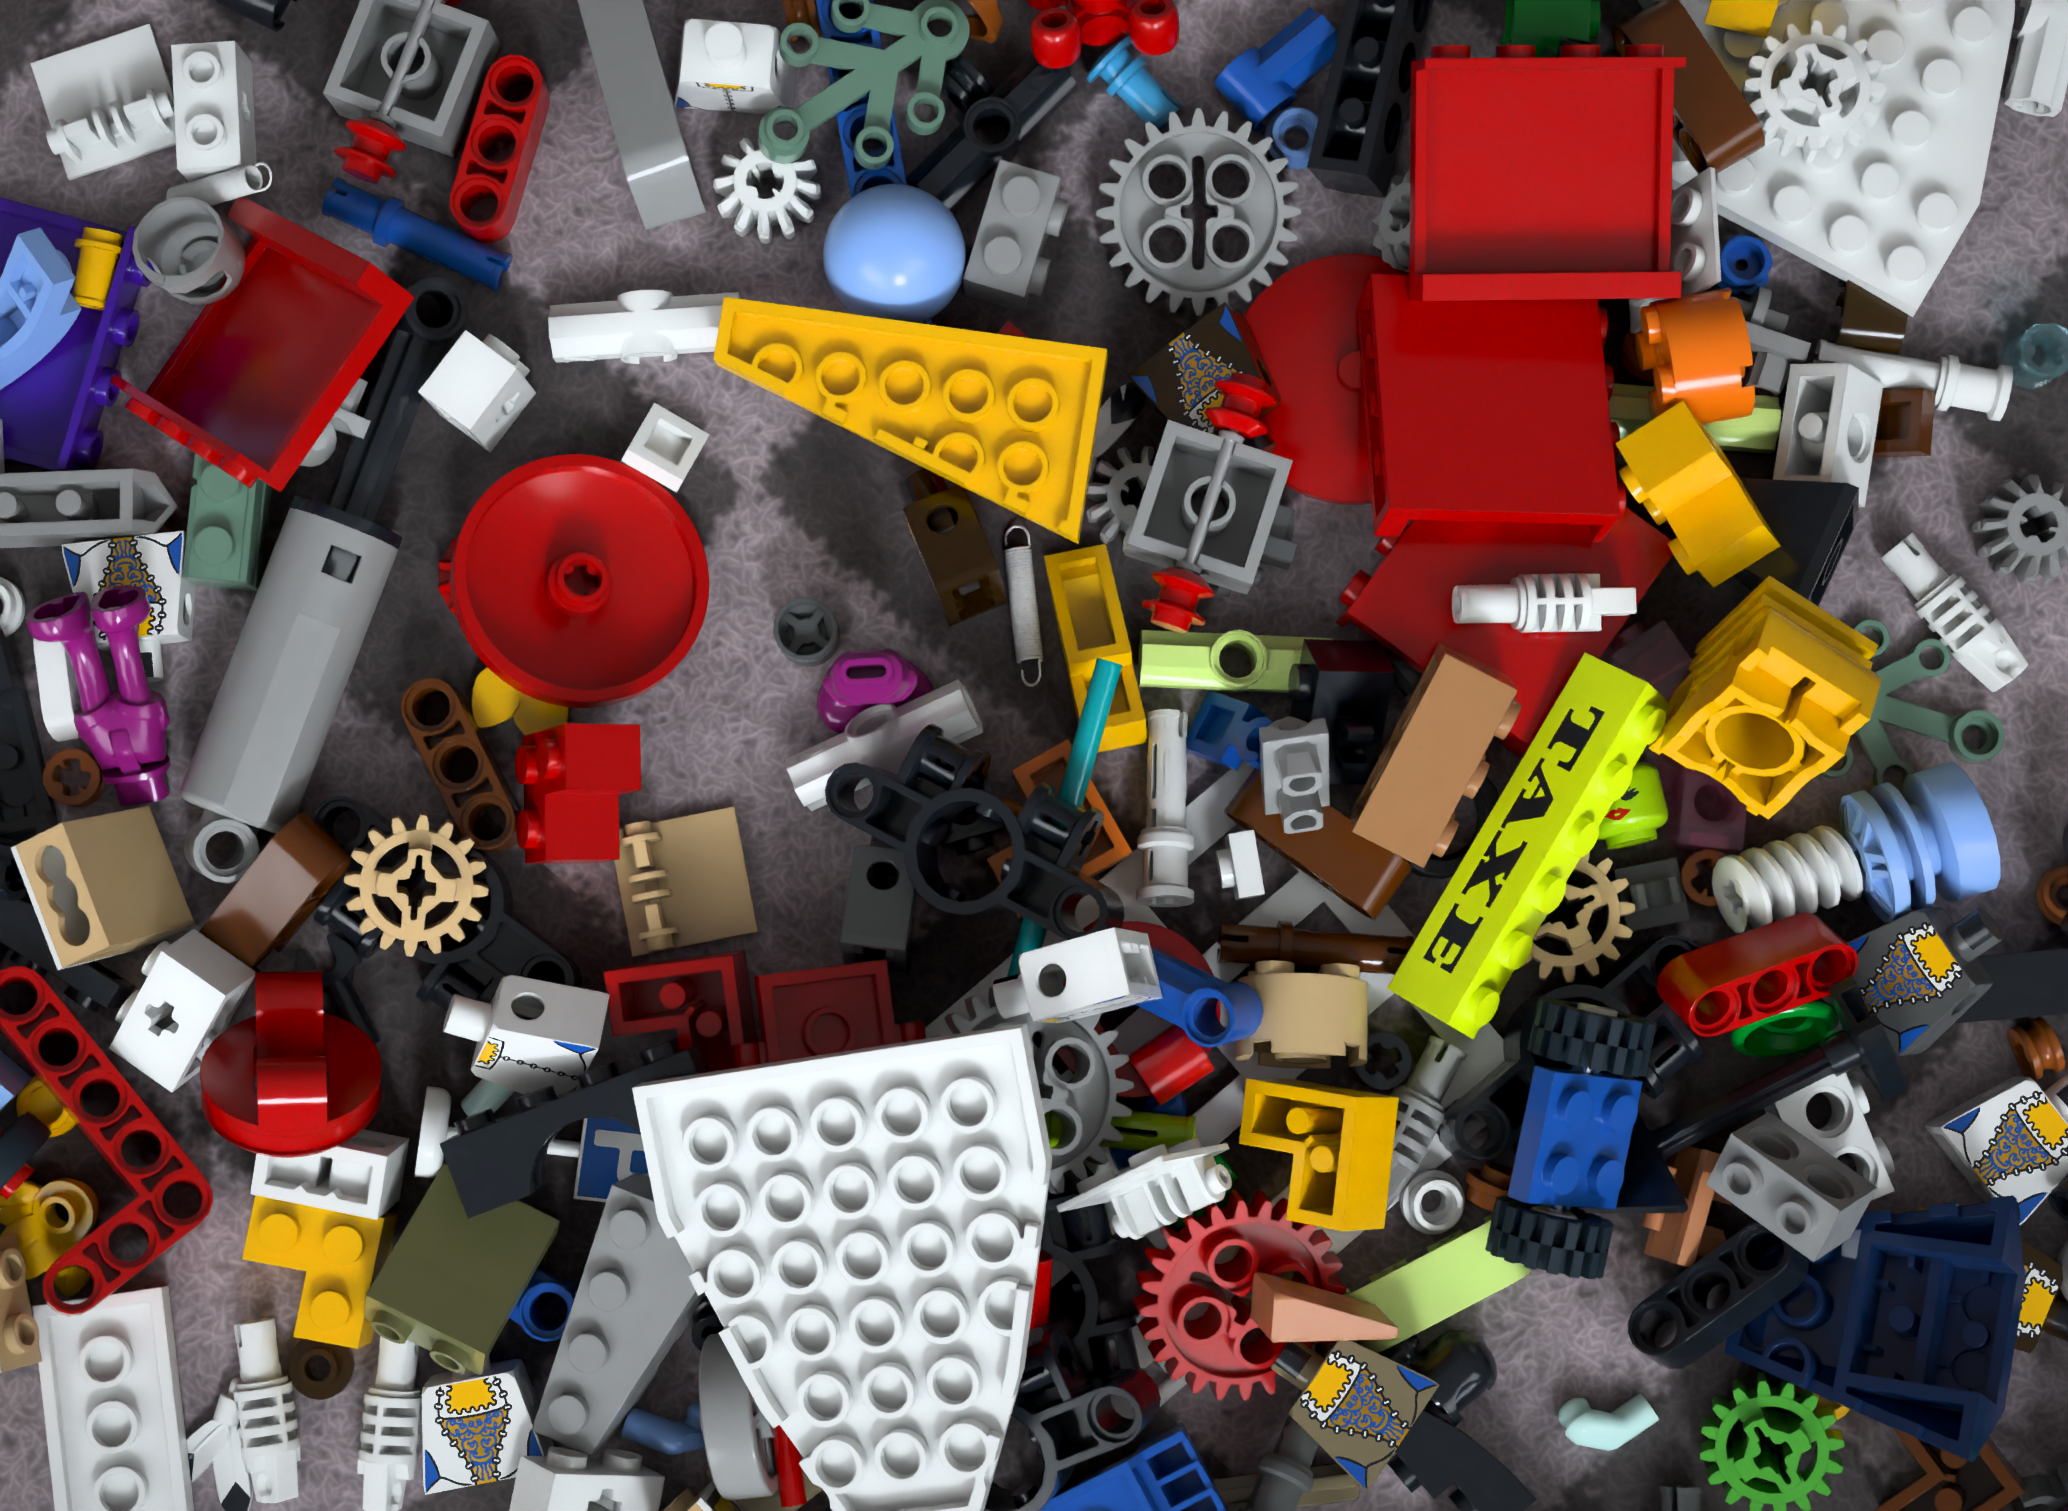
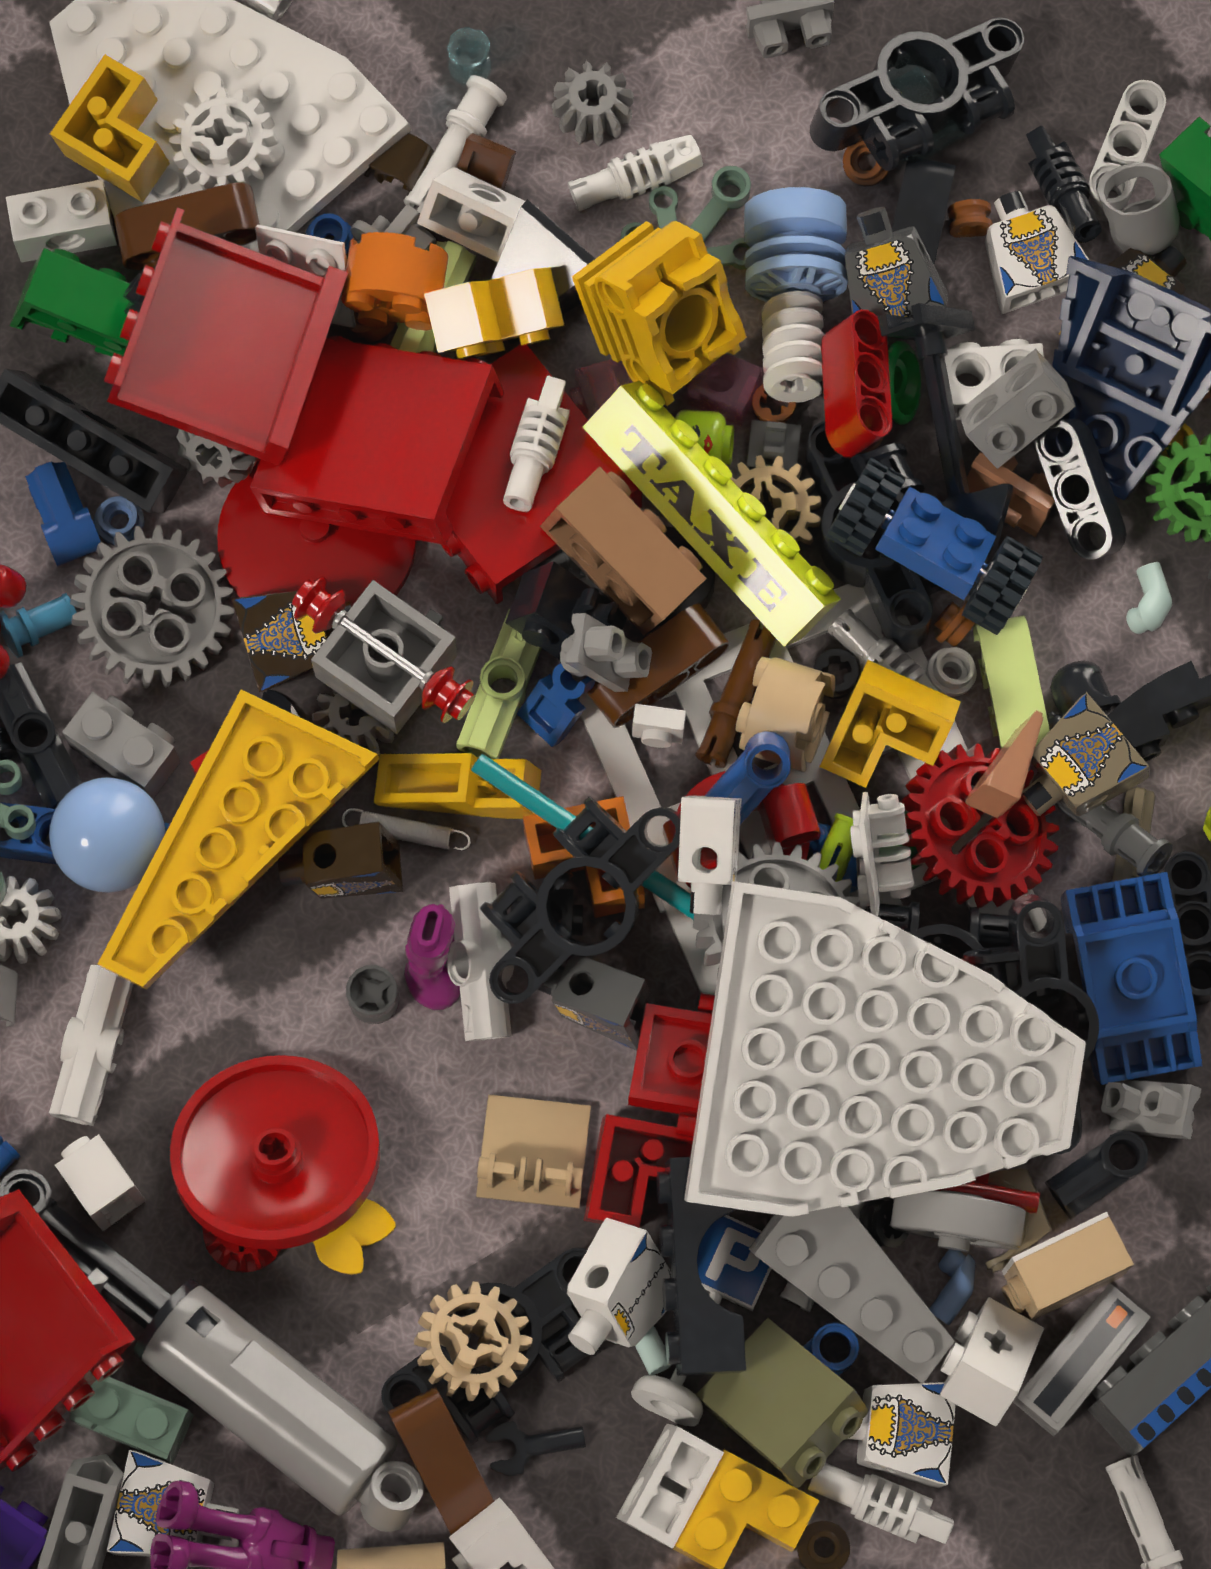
camera: 70 degrees left, 10 degrees down
(290, 1051) = (594, 1464): red piece -> none
(438, 747) = (362, 1286): reddish brown beam -> none
(574, 790) = (434, 1206): red brick -> none
(665, 447) = (191, 1059): white plate -> none
(1165, 838) = (619, 774): white pin -> none

